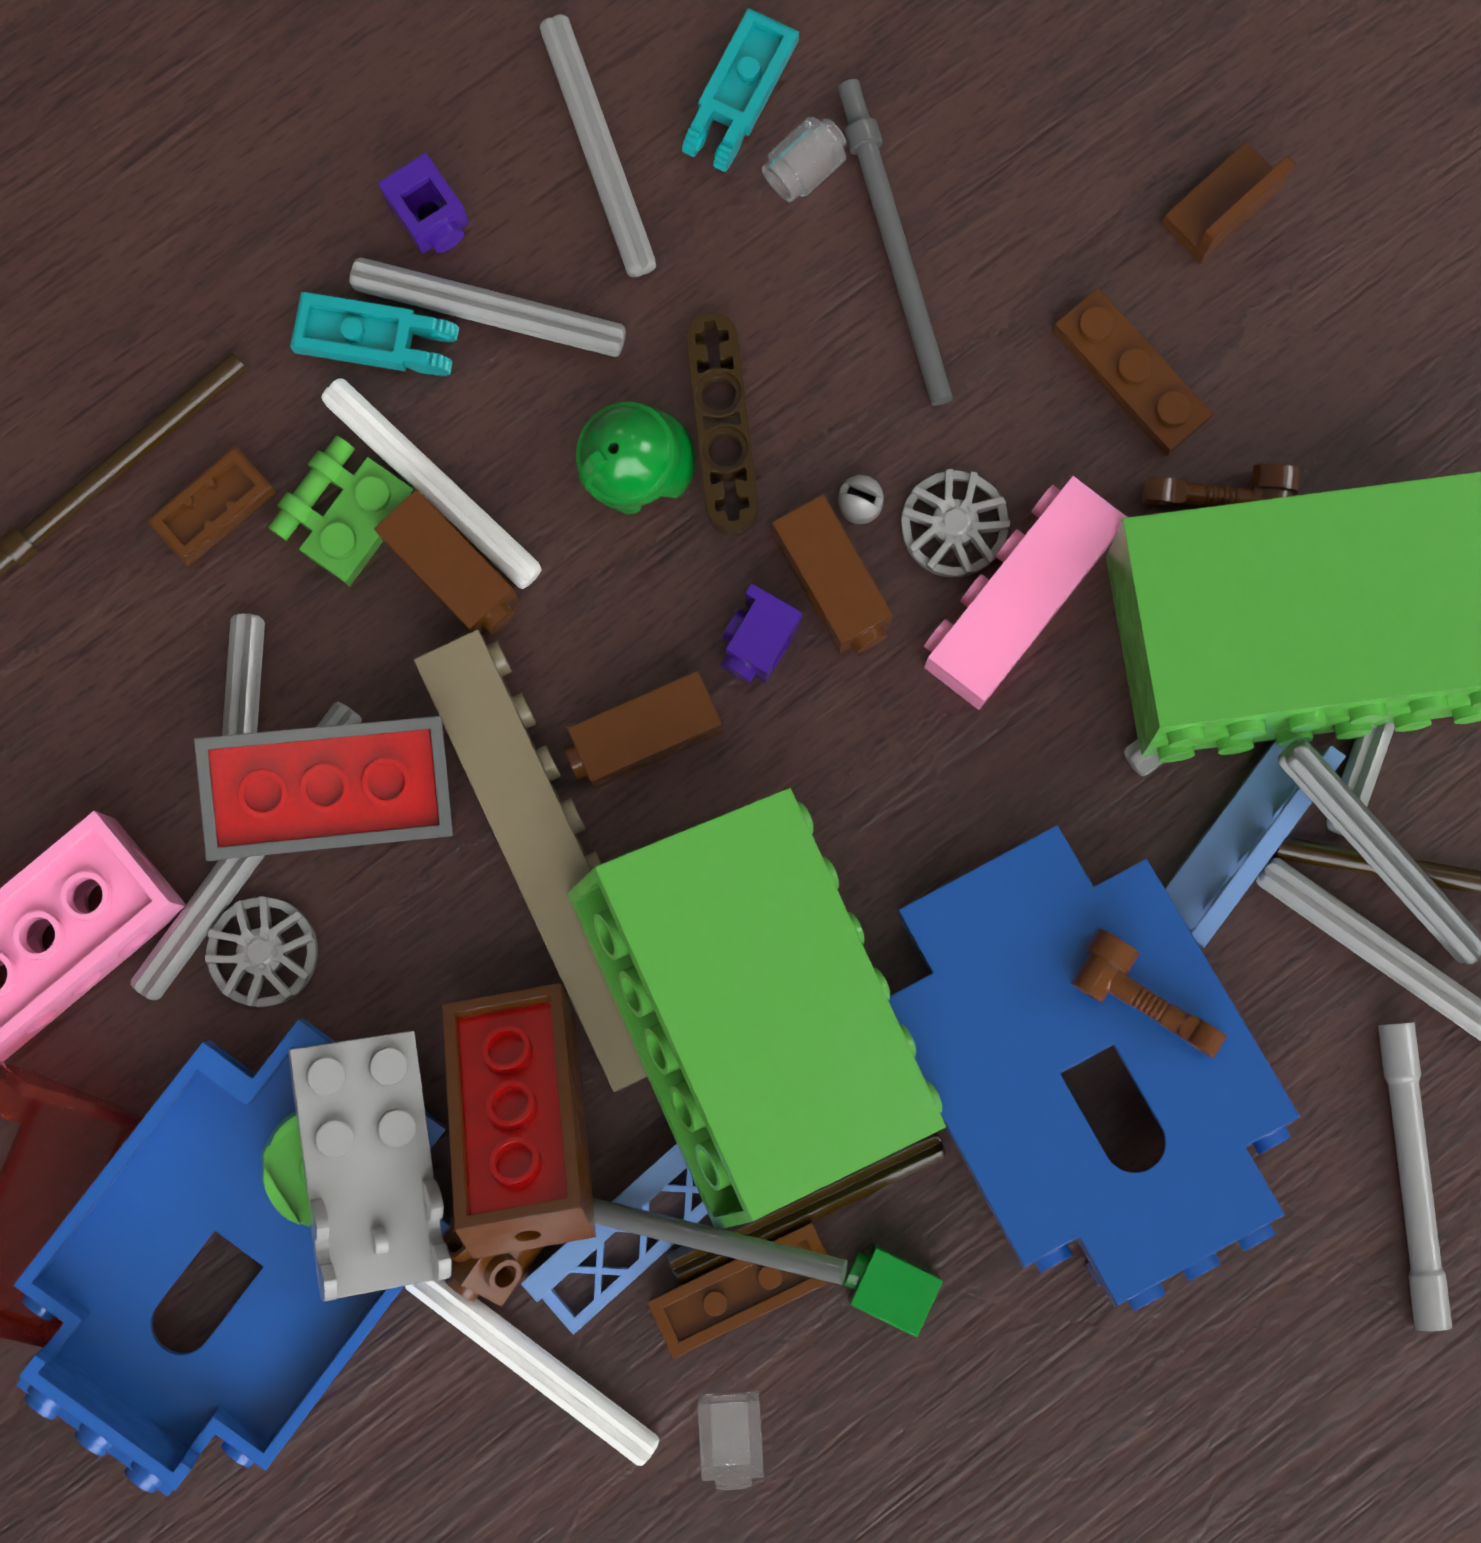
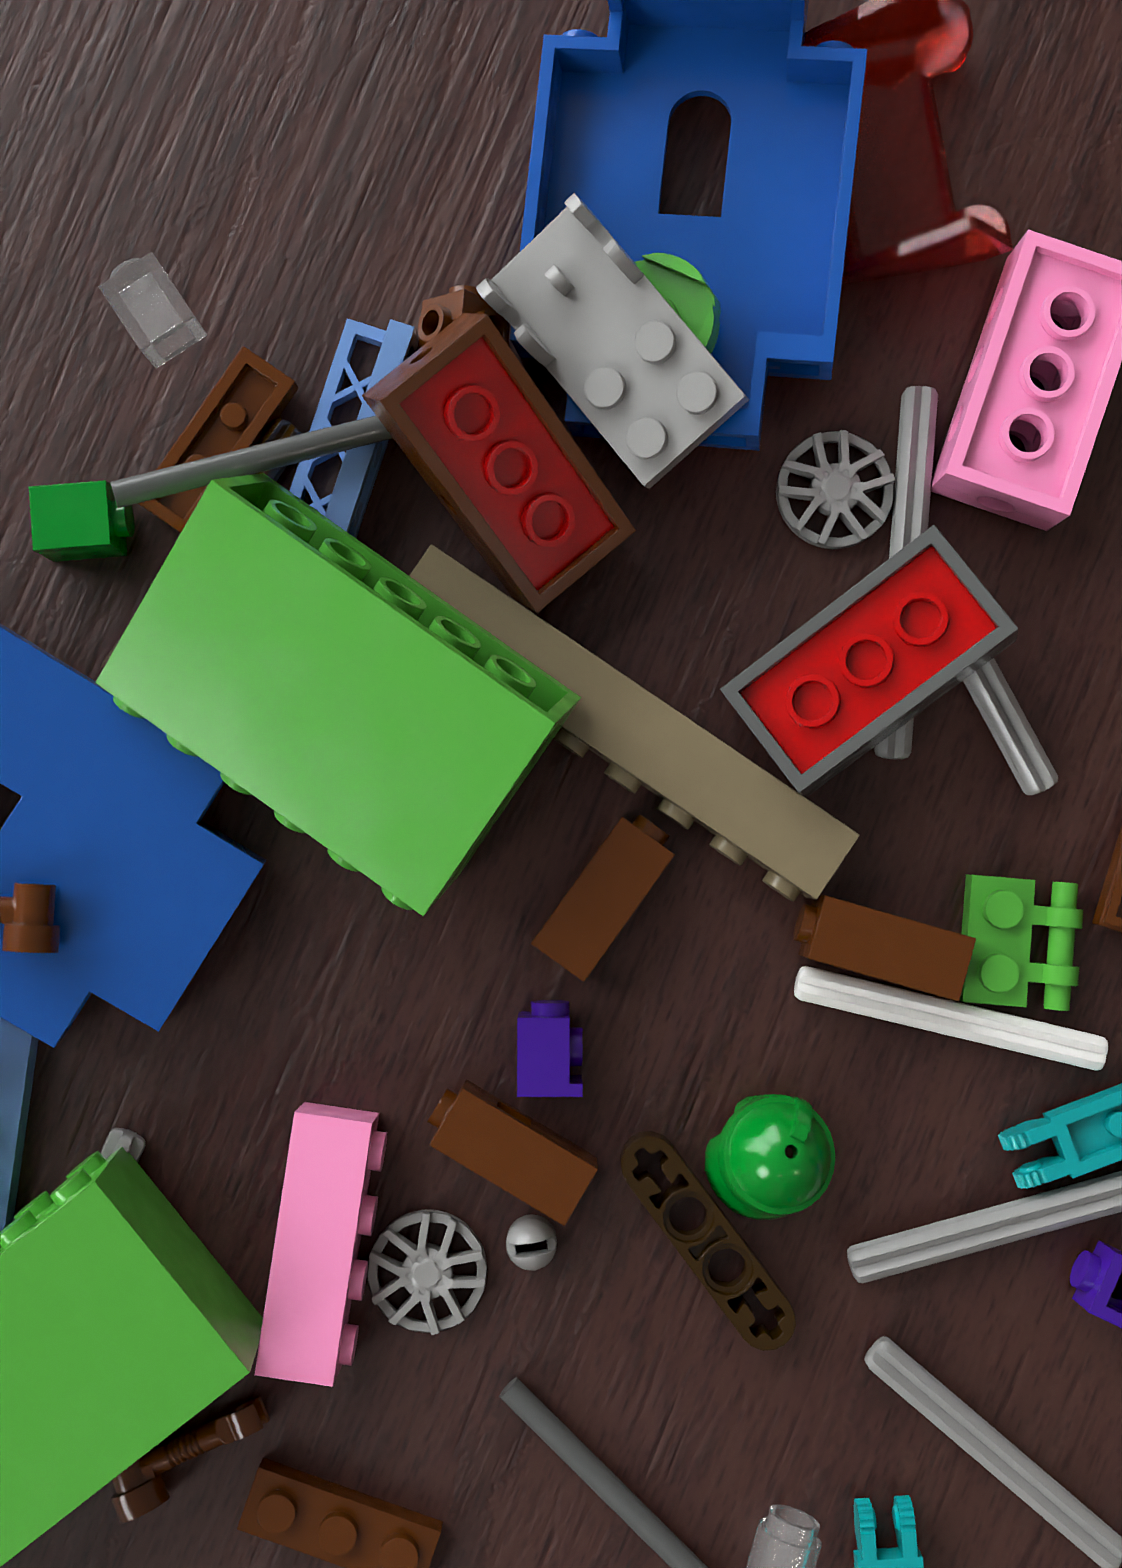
camera: 145 degrees right, 5 degrees up
(540, 1370) = (344, 270): white axle -> none

